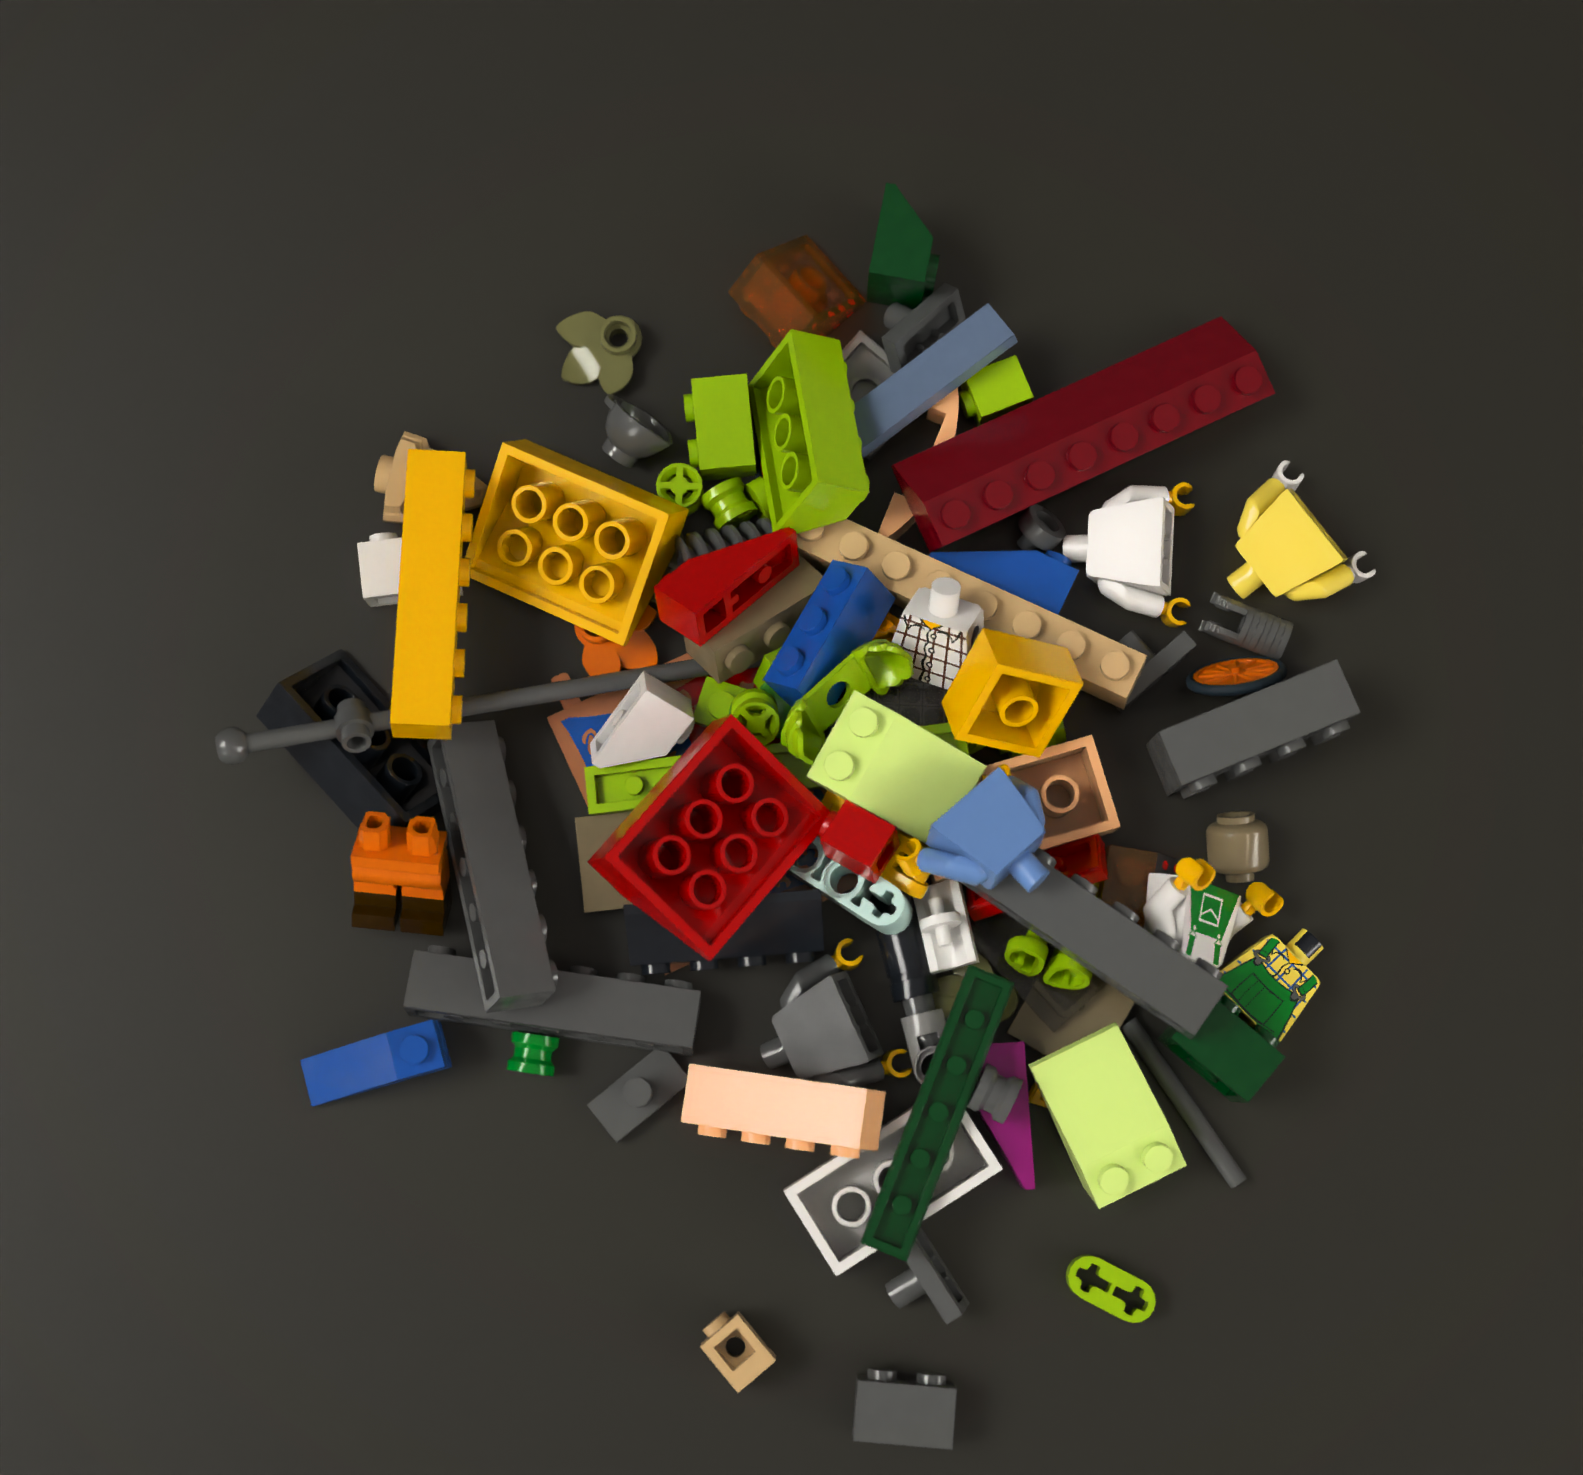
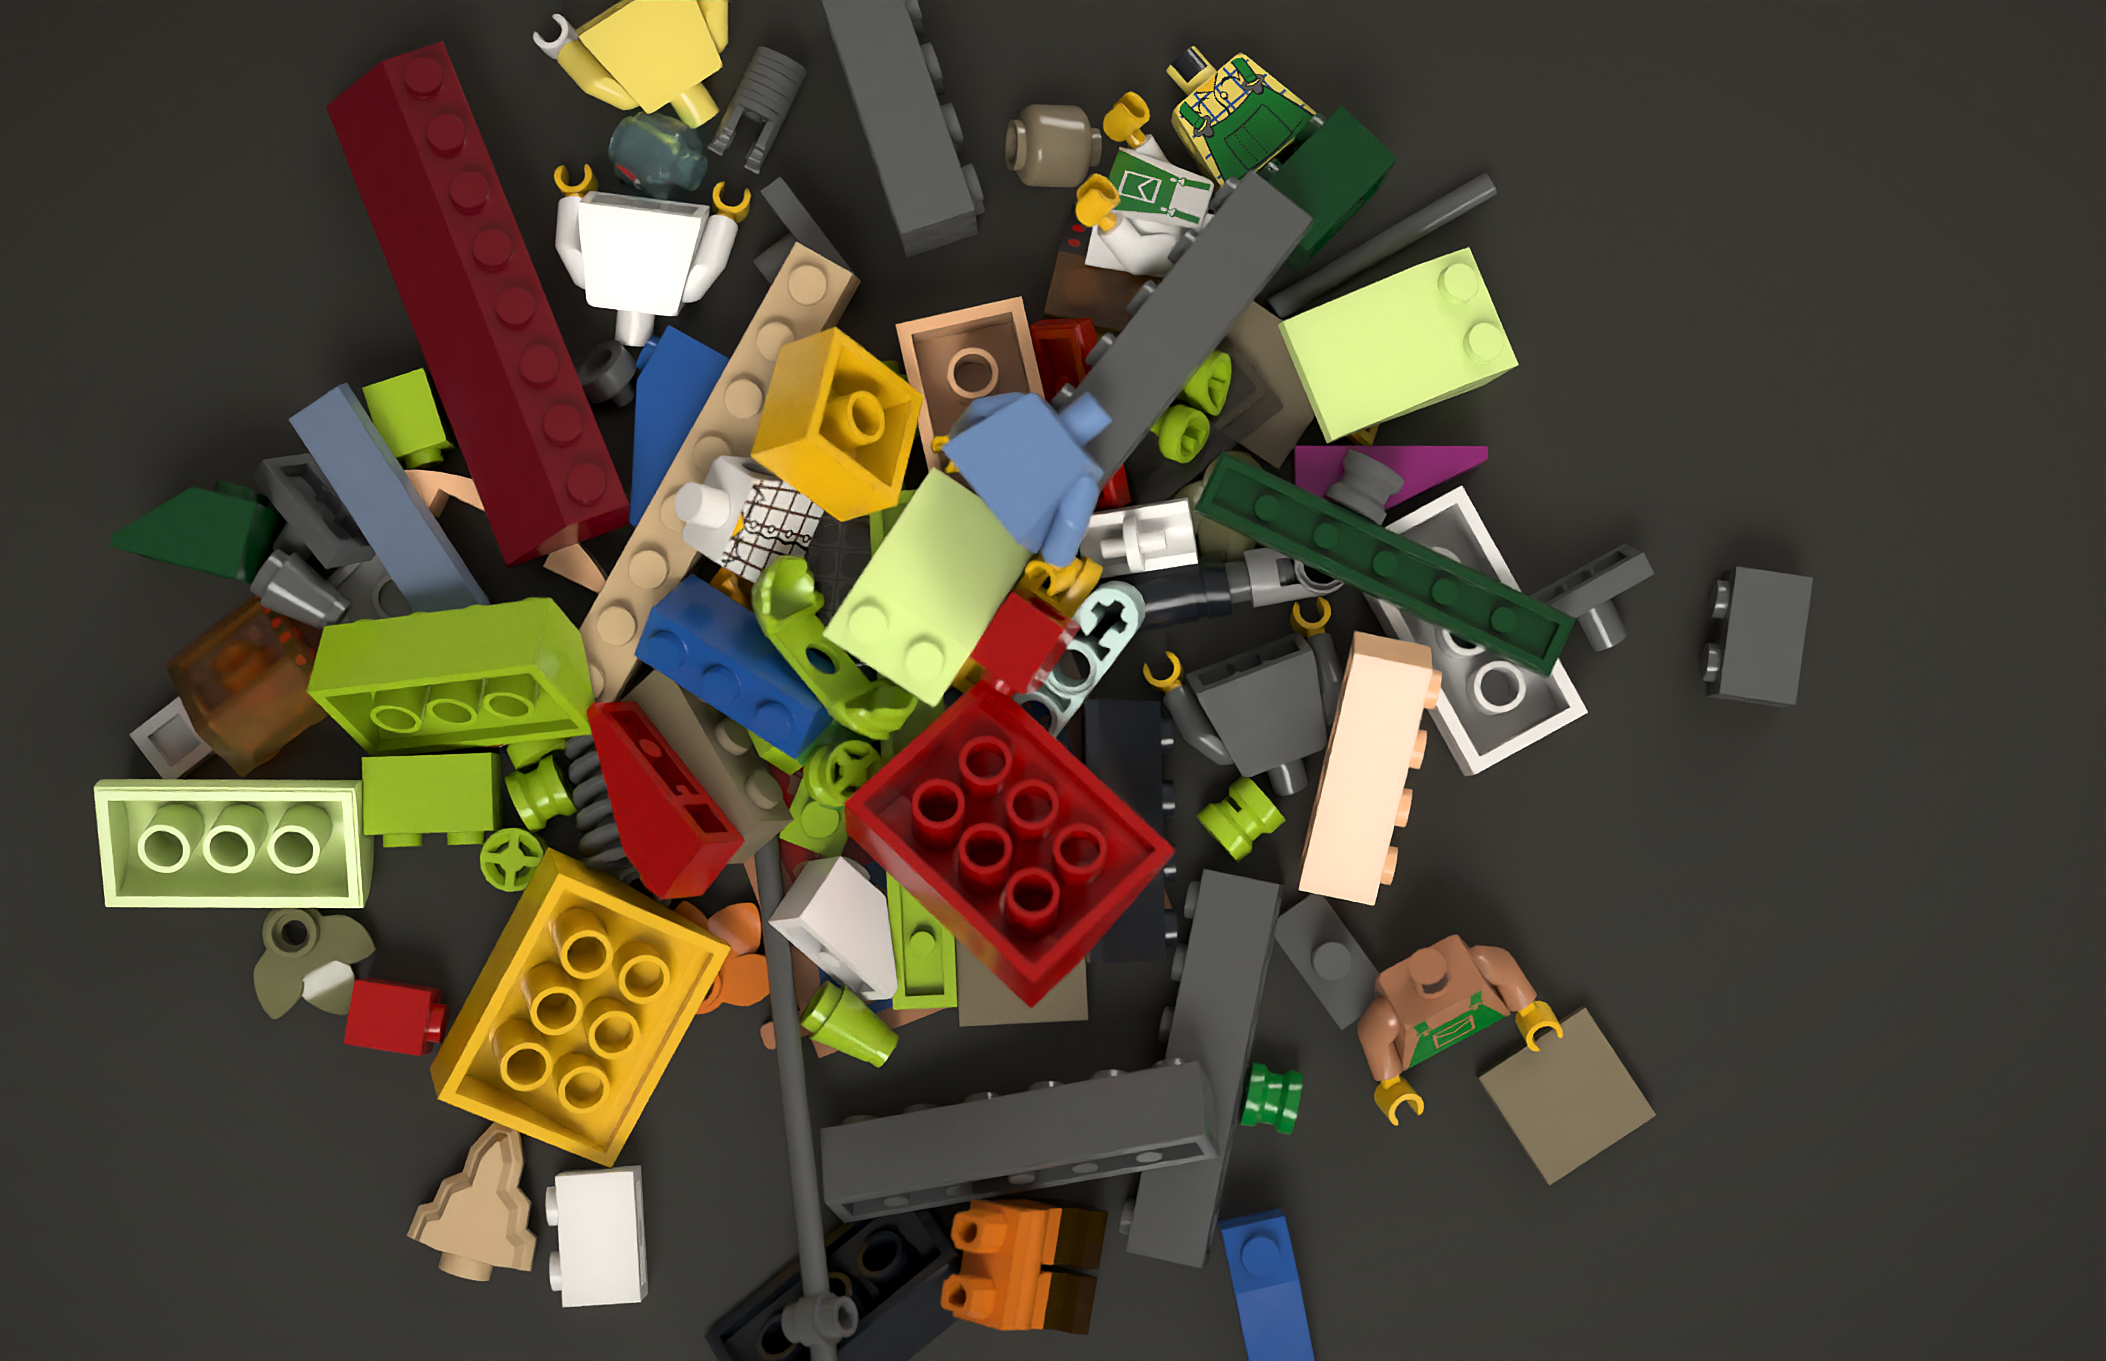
camera: 90 degrees left, 5 degrees up
(430, 595) = (645, 1207): yellow brick -> none
(546, 1280) = (1566, 1097): none -> dark tan tile
(561, 412) = (396, 1016): none -> red brick
(571, 735) = (847, 1024): none -> lime cone
(611, 1176) = (1437, 1002): none -> nougat torso
(632, 432) = (431, 919): dark grey piece -> none
(679, 289) = (233, 843): none -> yellowish green brick
(739, 1368) = (1693, 849): tan brick -> none
(741, 1018) = (1240, 818): none -> lime wheel
(747, 240) = (172, 742): none -> light grey plate
(864, 321) = (298, 591): none -> dark grey cone
(1105, 1299) = (1603, 352): lime beam -> none
(1205, 556) = (657, 155): none -> clear light blue head
(1236, 676) = (826, 127): wheel -> none

